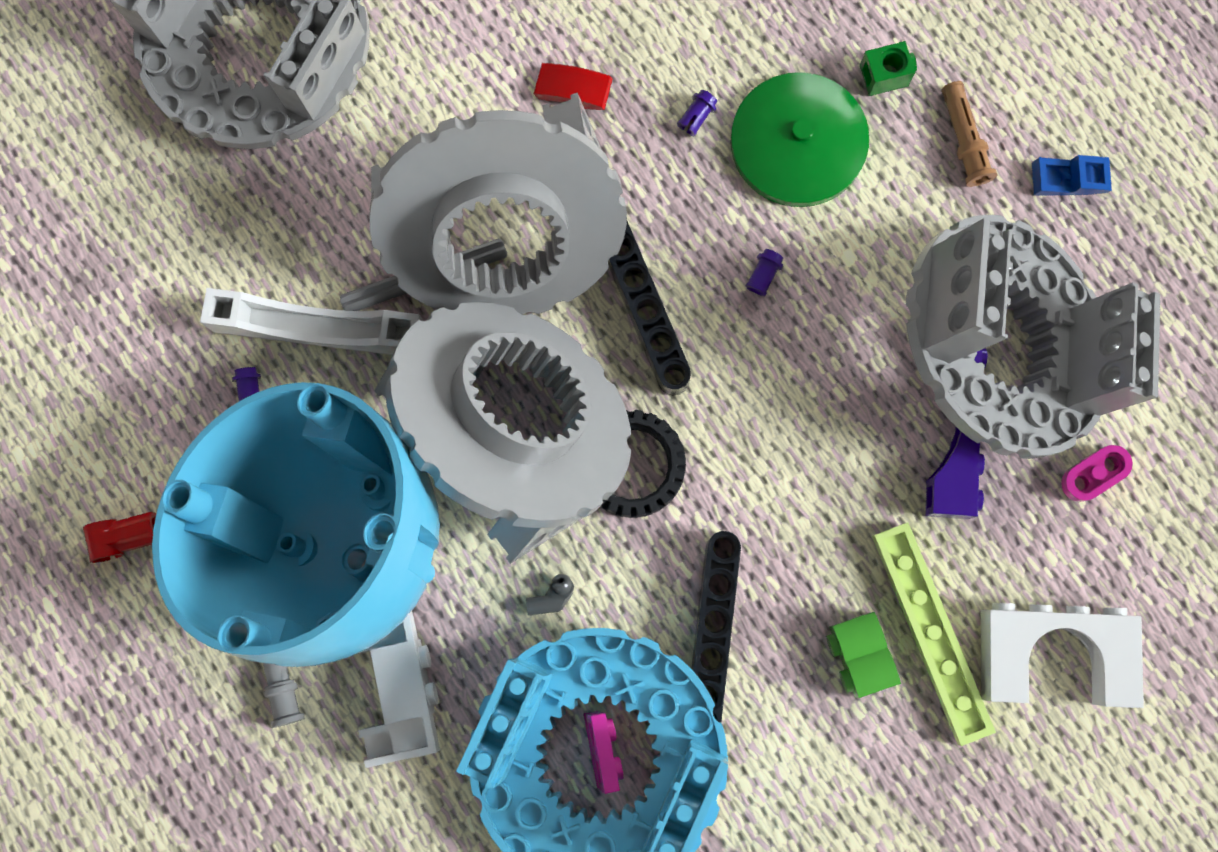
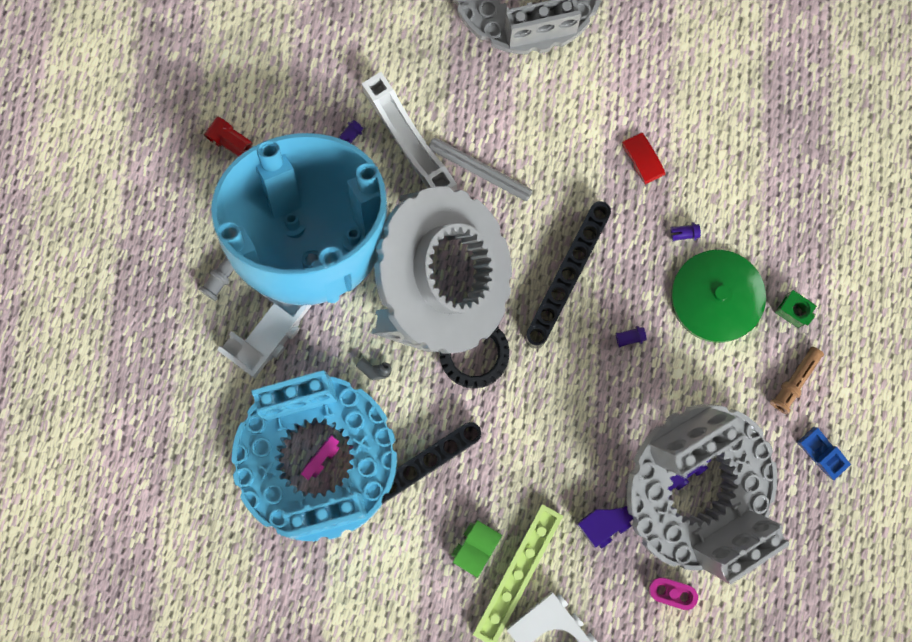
camera: 45 degrees right, 0 degrees up
(499, 157) = (581, 190): light grey piece -> none

